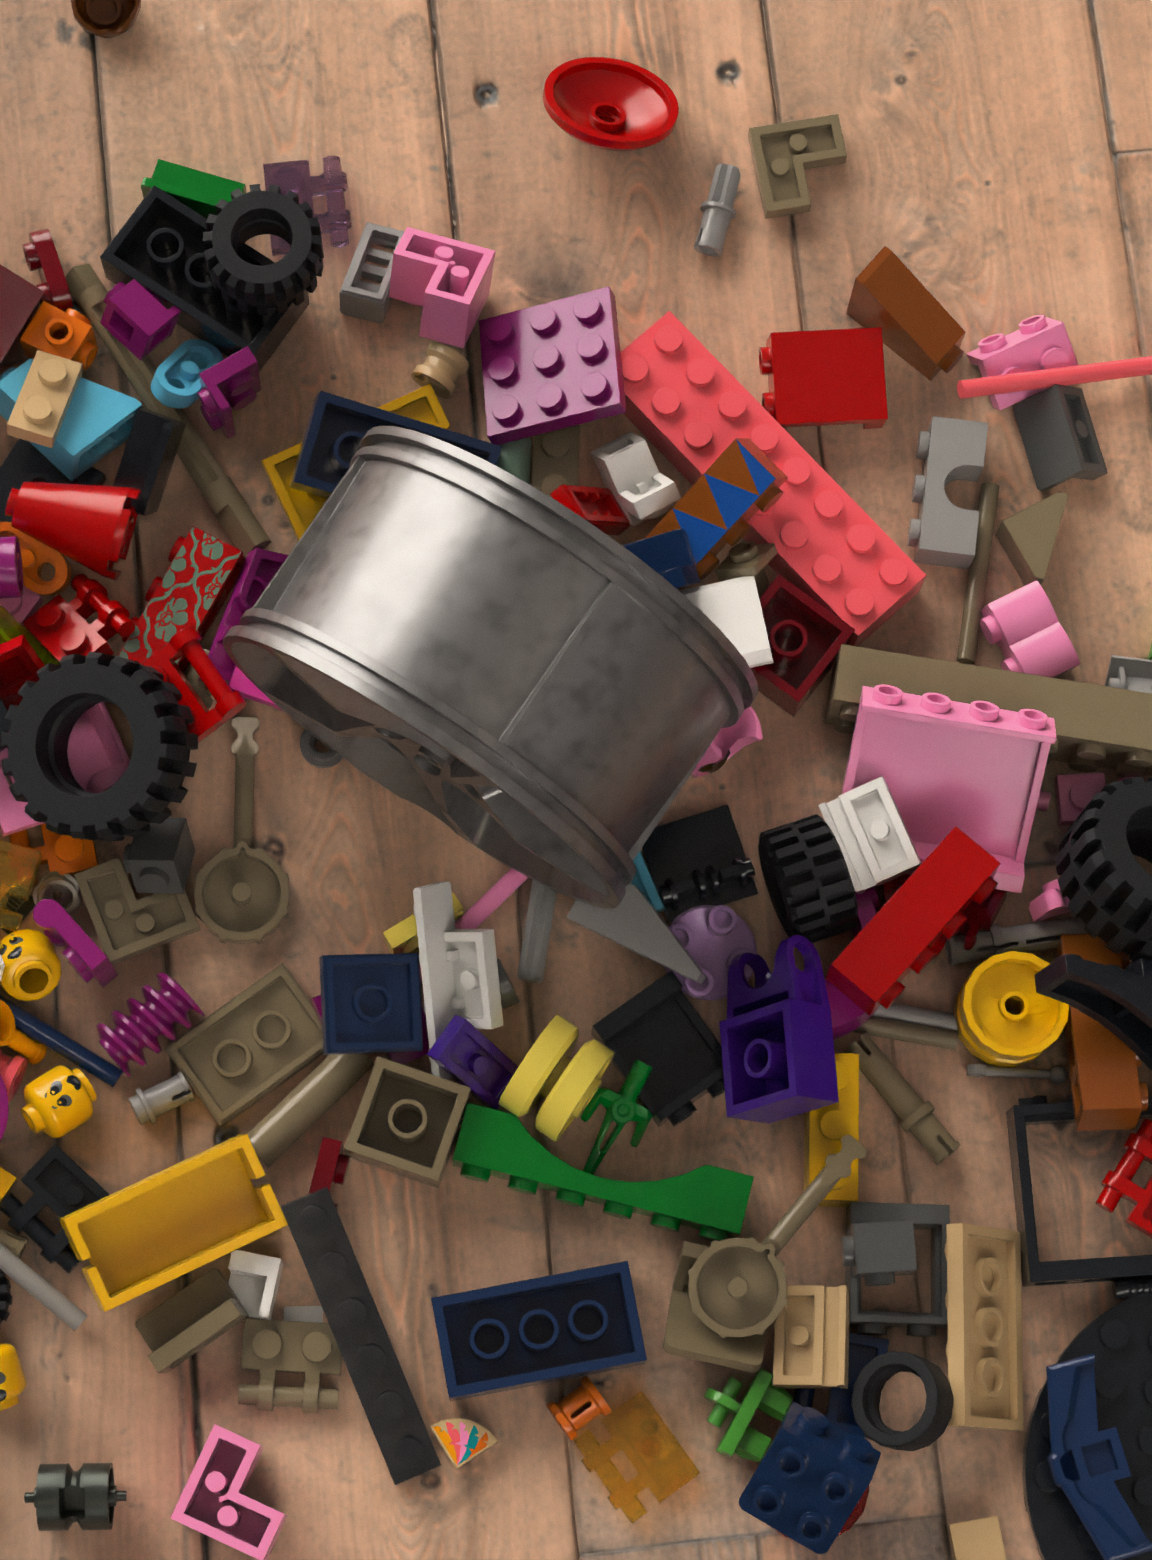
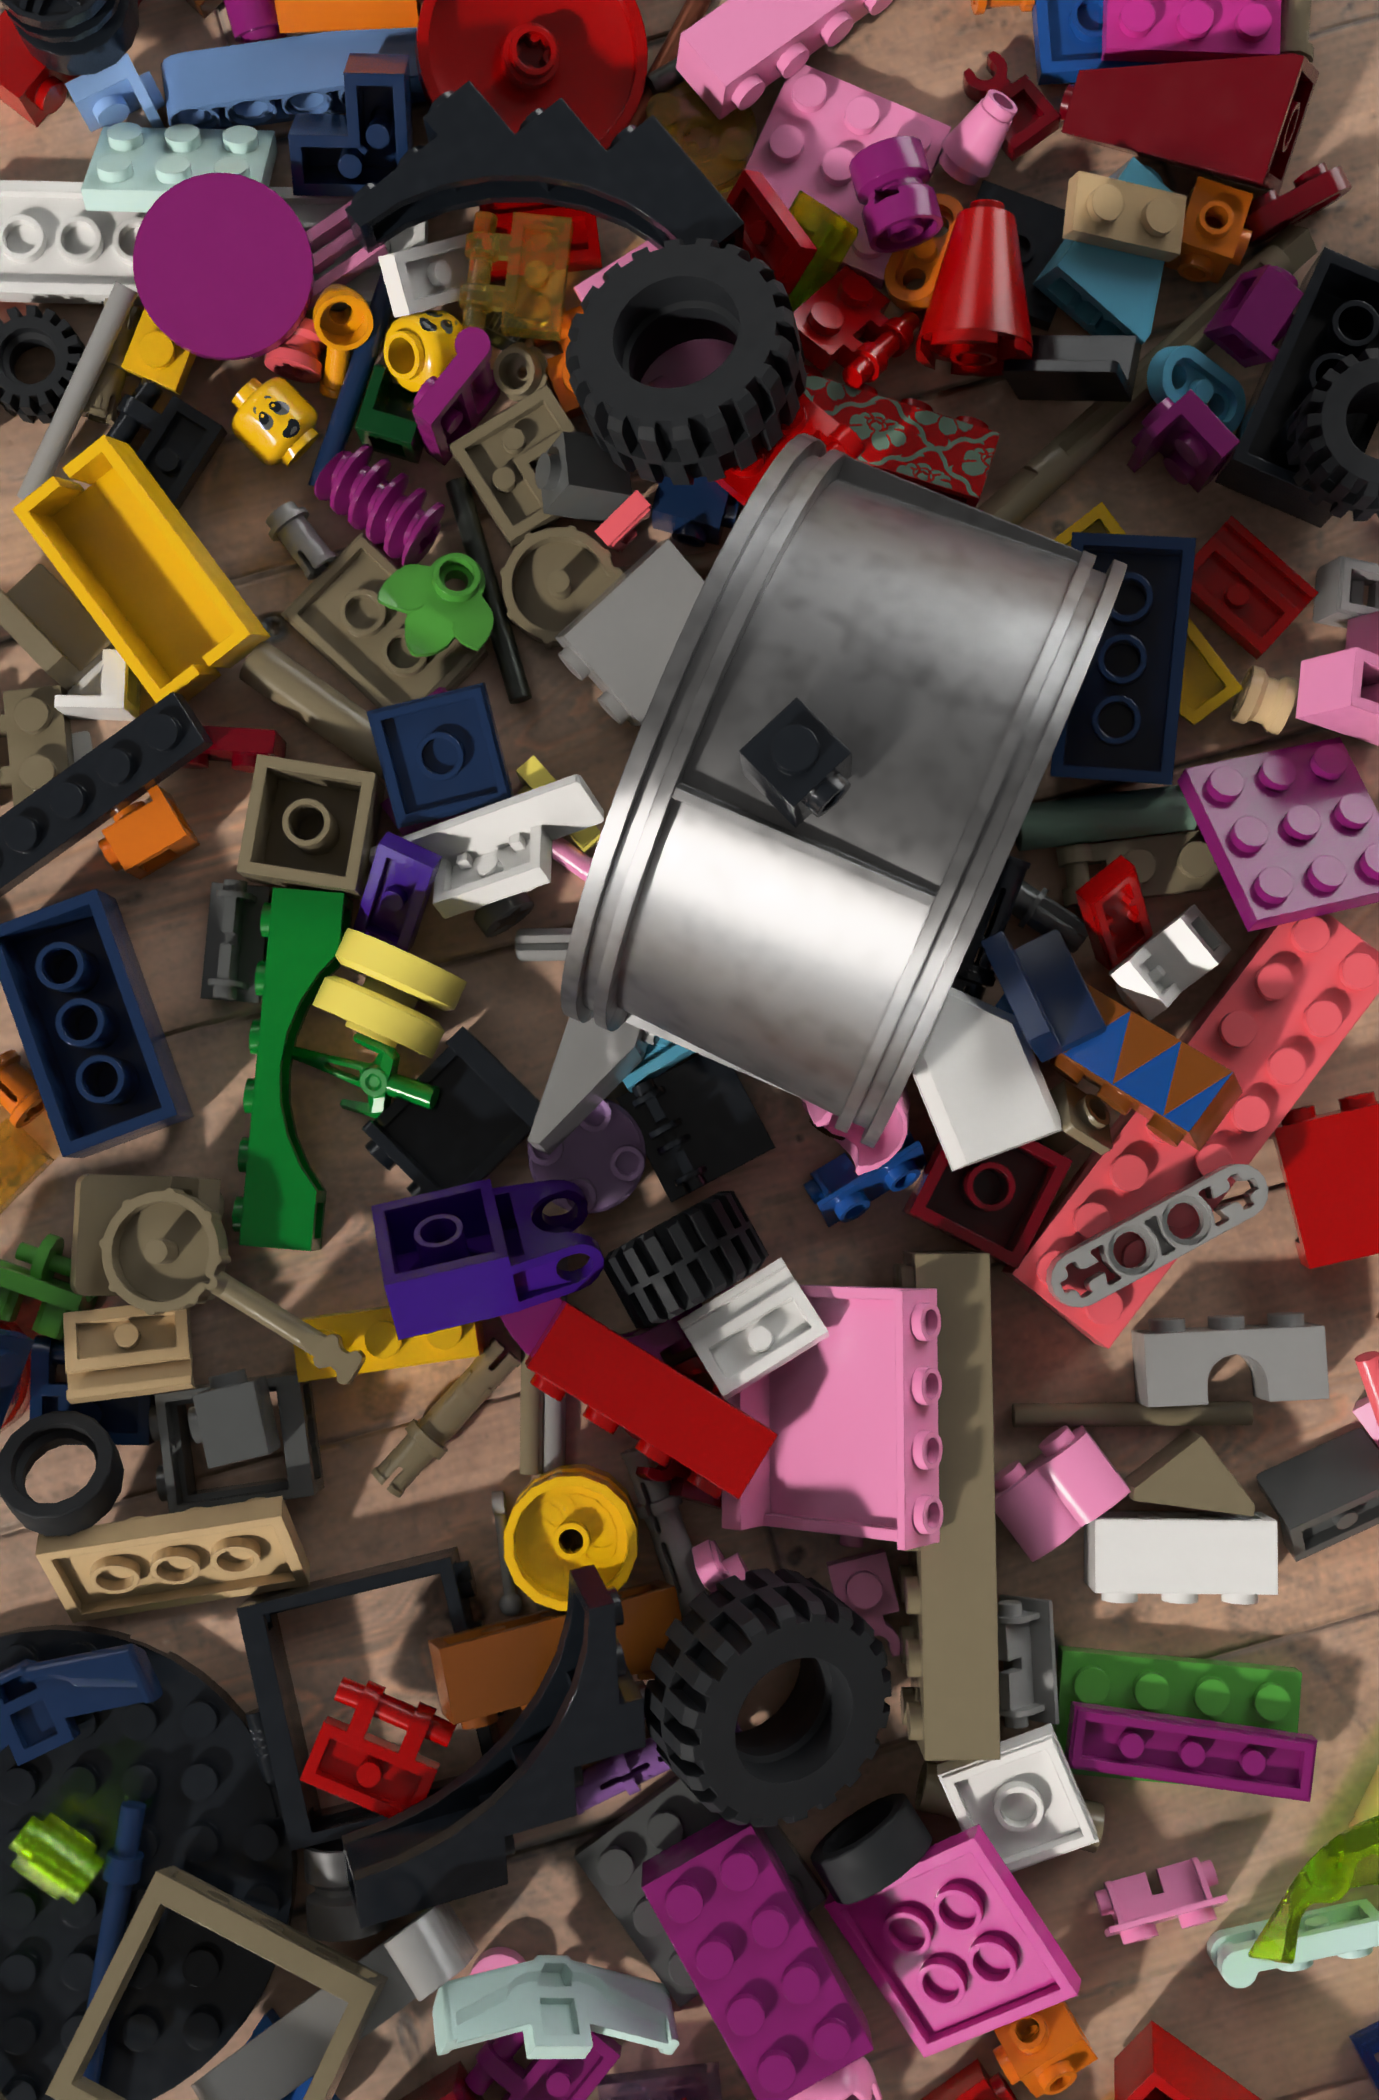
camera: 85 degrees right, 10 degrees up
(74, 1004) = (388, 418): none -> dark green panel
(203, 829) = (620, 526): none -> coral tile
(209, 778) = (694, 511): none -> dark blue brick
(231, 954) = (476, 548): none -> pearl dark grey bar
(246, 995) = (436, 612): none -> bright green plate
(300, 827) = (632, 630): none -> light grey brick
(349, 363) = (1247, 588): none -> red plate
(386, 1263) = (147, 835): none -> orange brick
(486, 1208) = (233, 941): none -> dark grey hinge
(510, 650) = (797, 764): none -> black brick
(772, 753) = (846, 1196): none -> blue hinge
(851, 520) = (1159, 1240): none -> light grey beam
(1091, 555) = (1181, 1556): none -> white brick

